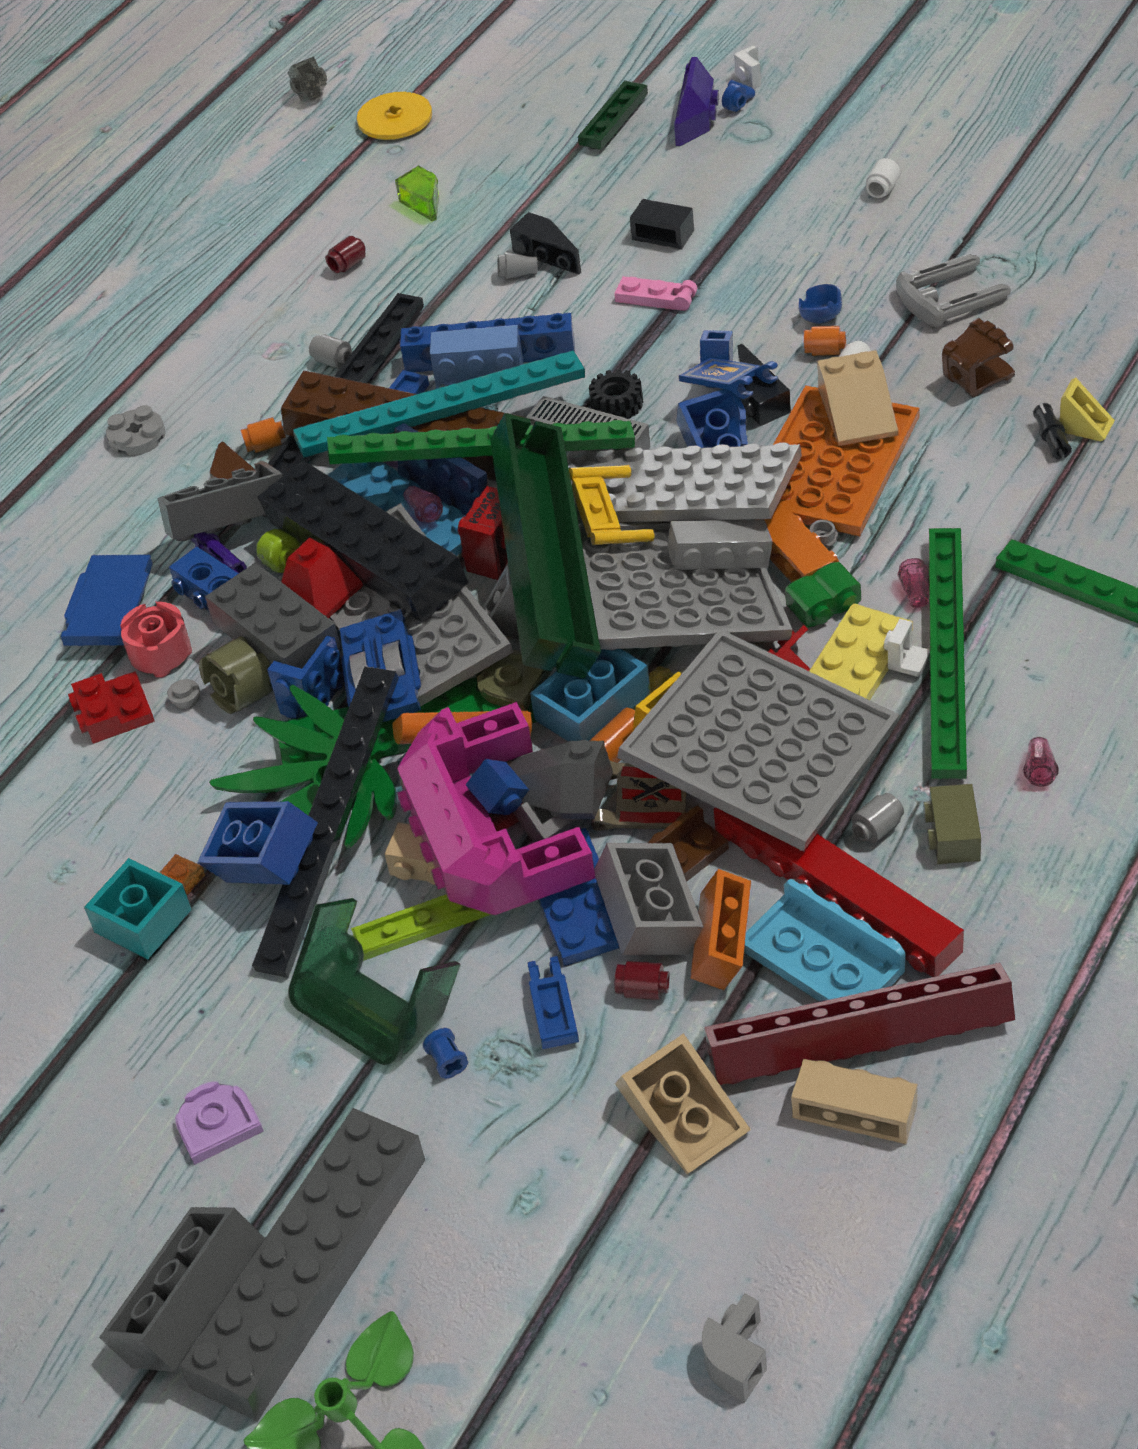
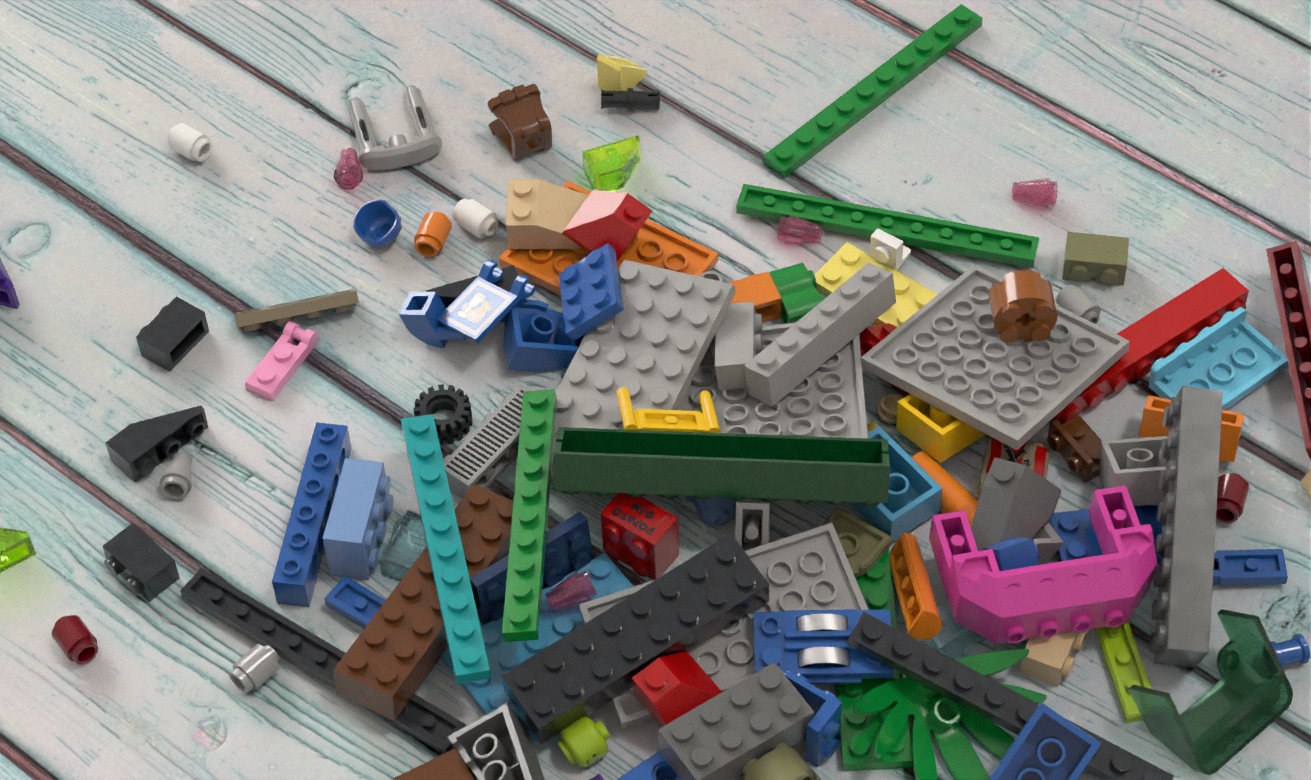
camera: 85 degrees left, 5 degrees up
(263, 435) = (378, 748): orange brick -> none
(424, 267) = (140, 562): none -> black piece
(545, 904) = (1187, 528): none -> dark grey brick
(714, 287) = (283, 312): none -> dark tan plate
(741, 593) = (820, 334): none -> light grey brick
(757, 432) = (590, 292): none -> blue plate
(803, 729) = (1023, 307): none -> dark orange brick
(851, 434) = (607, 219): none -> red slope
(884, 274) = (348, 170): none -> clear pink cone
(953, 434) = (611, 164): none -> clear neon green slope

